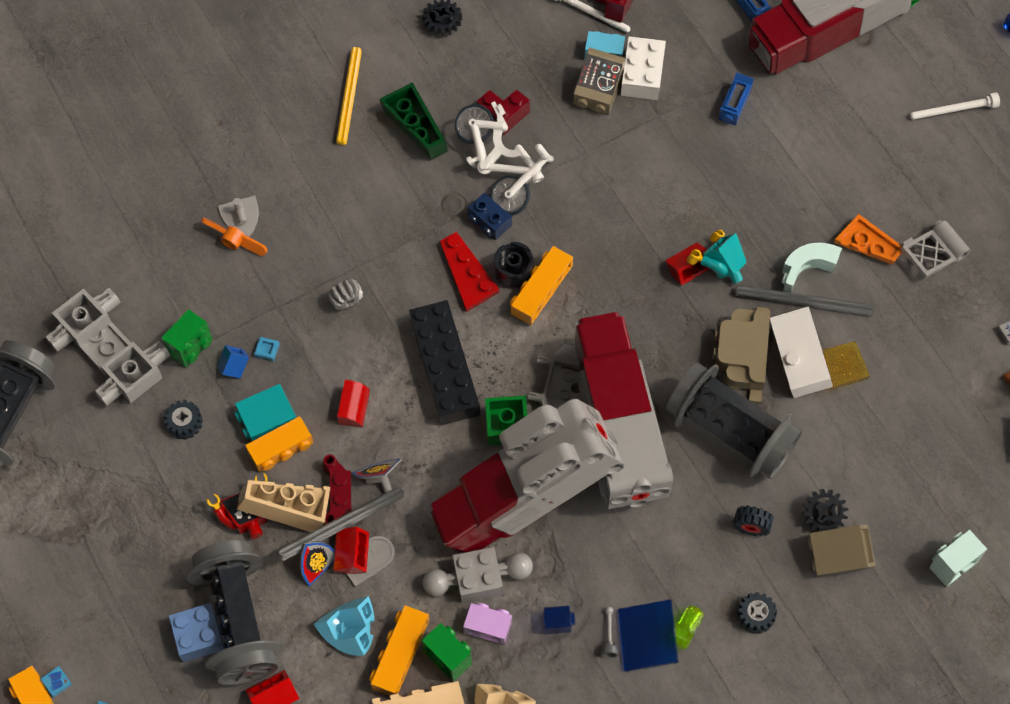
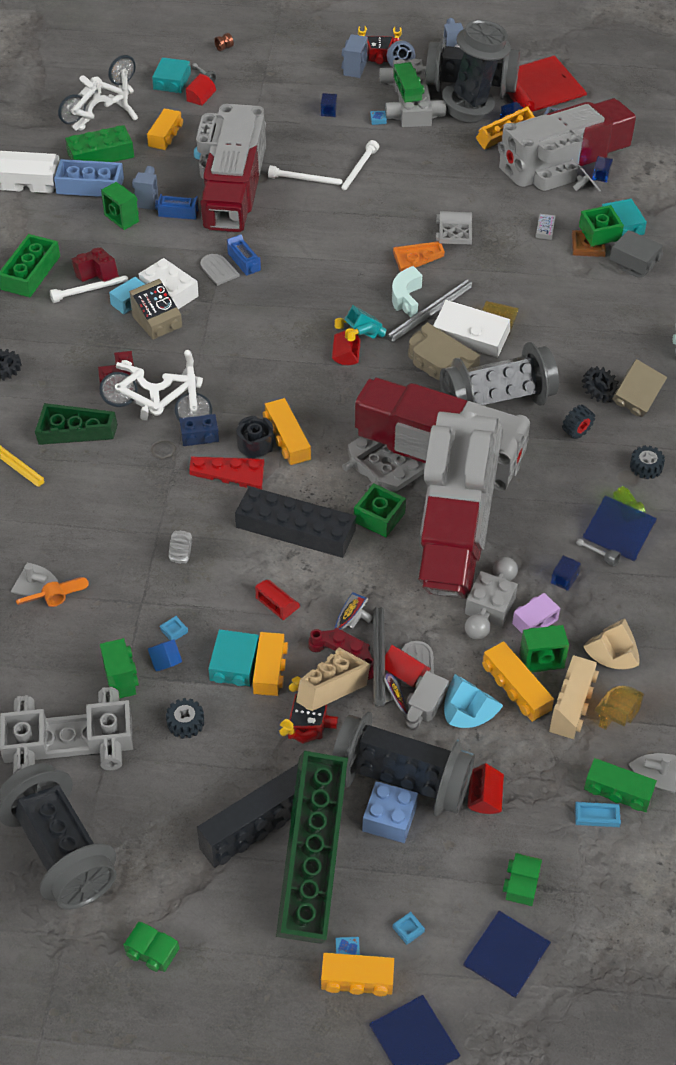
camera: 55 degrees left, 15 degrees down
(107, 595) = (312, 848): none -> dark green brick
(125, 536) = (248, 819): none -> black brick
(328, 589) = (426, 699): none -> light grey hinge
(705, 90) = (218, 268): none -> light grey window
(876, 44) = (275, 172): none -> white piece

